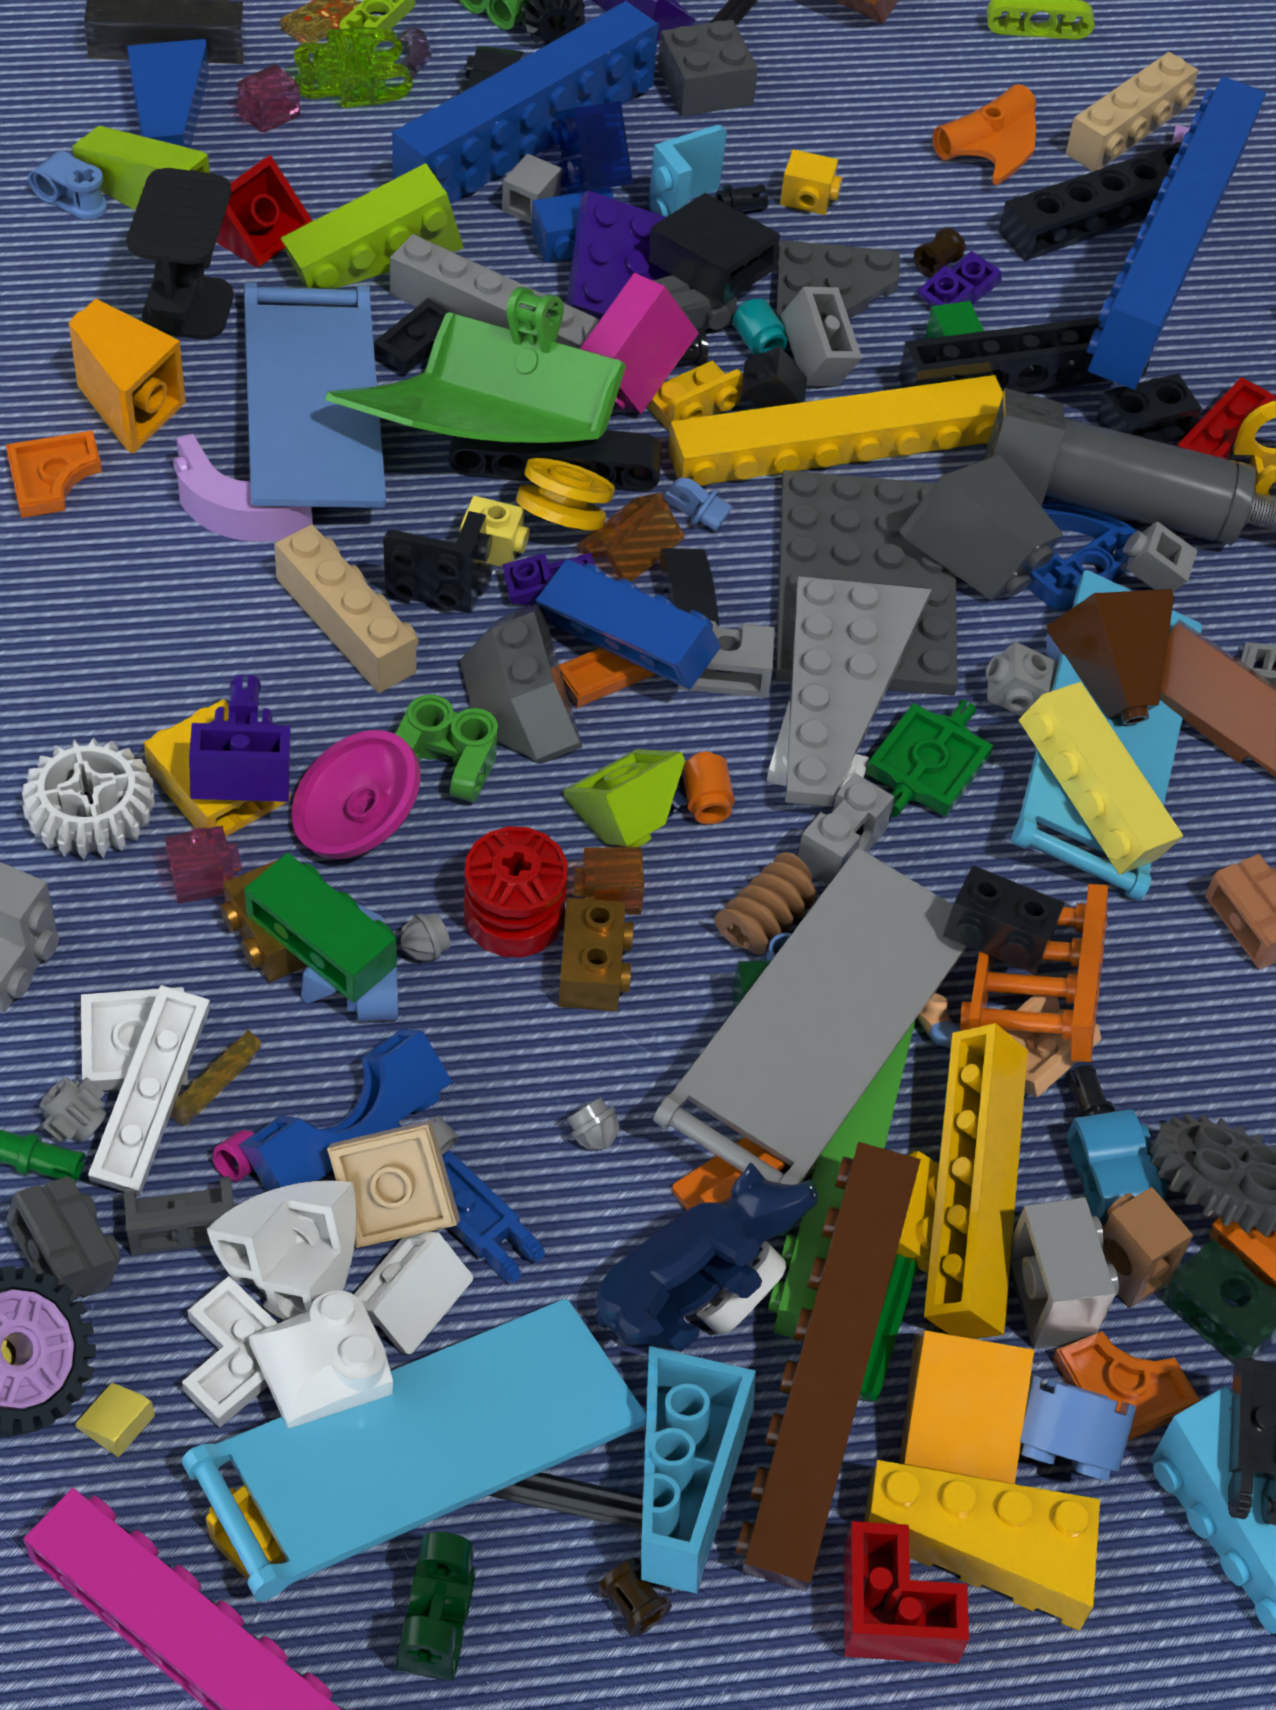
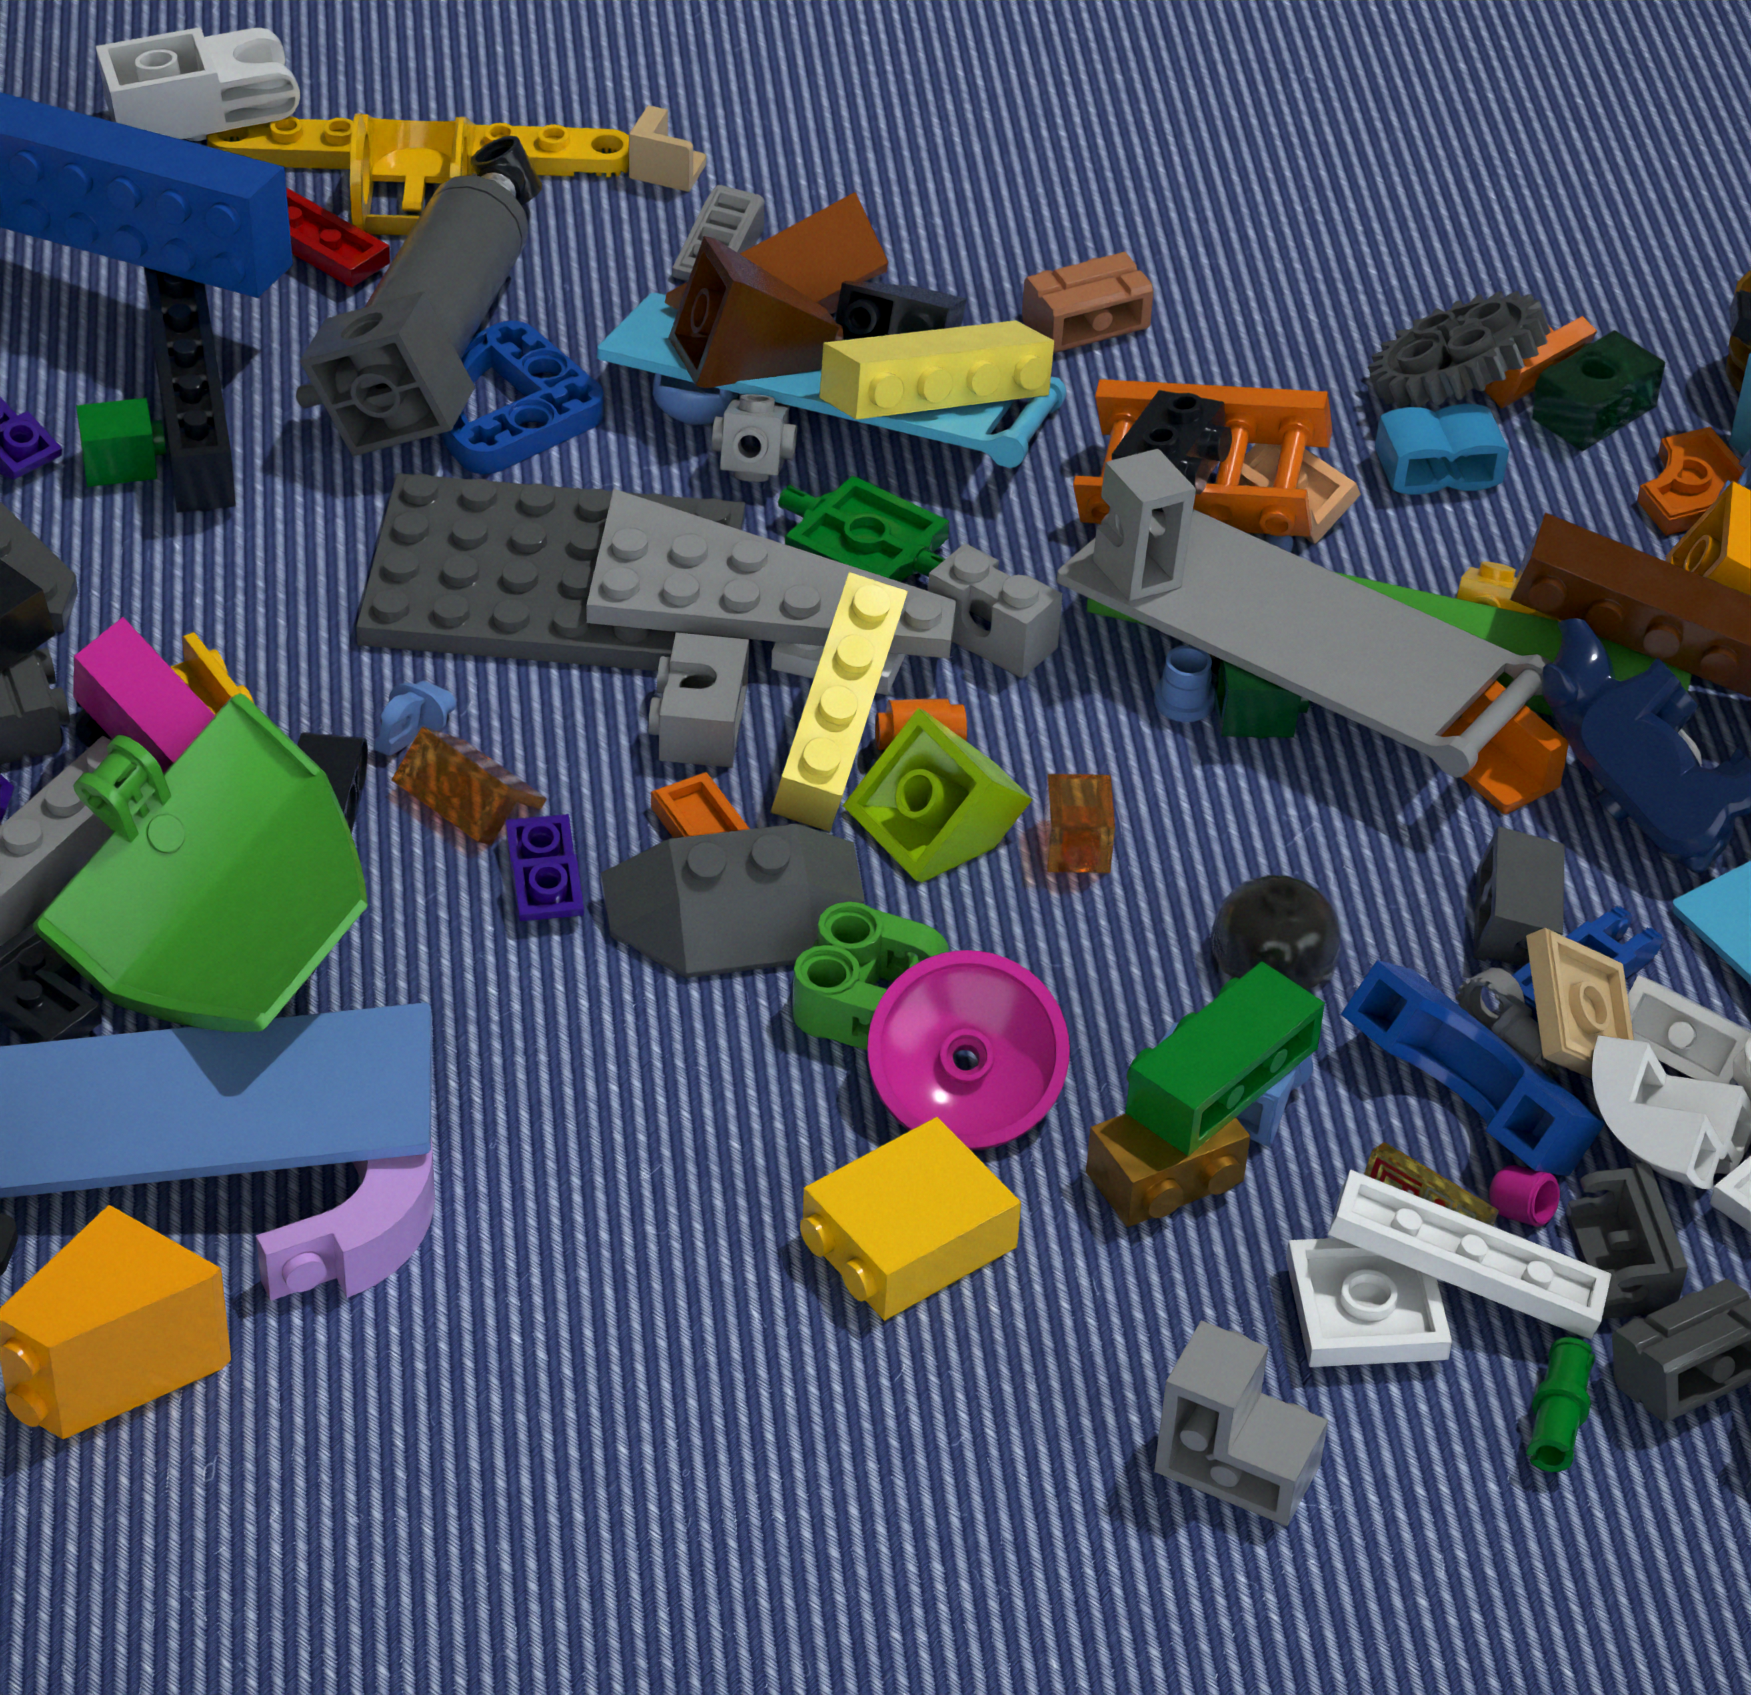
camera: 85 degrees left, 10 degrees down
(49, 468) = (270, 1462): orange tile -> none
(62, 811) = (964, 1361): white gear -> none
(73, 1109) = (1478, 1344): light grey gear -> none
(201, 863) = (1075, 1232): clear pink brick -> none
(240, 755) = (928, 1134): dark purple brick -> none
(346, 608) = (606, 1075): tan brick -> none
(424, 937) = (1171, 999): light grey plate -> none
(439, 570) = (551, 937): black bracket -> none
(500, 1007) = (1282, 925): none -> clear smoke cylinder
(505, 525) = (460, 919): light yellow brick -> none
(515, 891) = (1119, 899): red wheel -> none
(549, 1170) = (1517, 894): none -> dark grey hinge
(565, 494) = (417, 822): yellow wheel -> none
(593, 954) = (1193, 845): pearl gold brick -> none
(594, 1125) = (1439, 858): light grey plate -> none
(629, 622) = (674, 759): blue brick -> none
(689, 581) = (558, 725): black slope -> none
(702, 716) = (839, 702): none -> light yellow brick
(759, 326) = (78, 622): teal brick -> none
(768, 904) = (1111, 681): medium nougat piece -> none
(773, 379) = (205, 605): black brick -> none
(821, 335) = (125, 553): light grey brick -> none
(834, 431) = (293, 569): yellow brick -> none
(876, 875) = (1130, 543): none -> light grey brick
(977, 1184) = (1453, 520): yellow brick -> none
(984, 528) = (524, 418): dark grey slope -> none
(1061, 1272) = (1606, 477): light grey brick -> none
(1087, 1092) = (1357, 460): black pin -> none
(1143, 1244) = (1560, 424): medium nougat brick -> none
(1155, 410) = (296, 303): black brick -> none
(1159, 557) = (559, 302): light grey brick -> none
(1192, 776) = (895, 309): none -> black slope

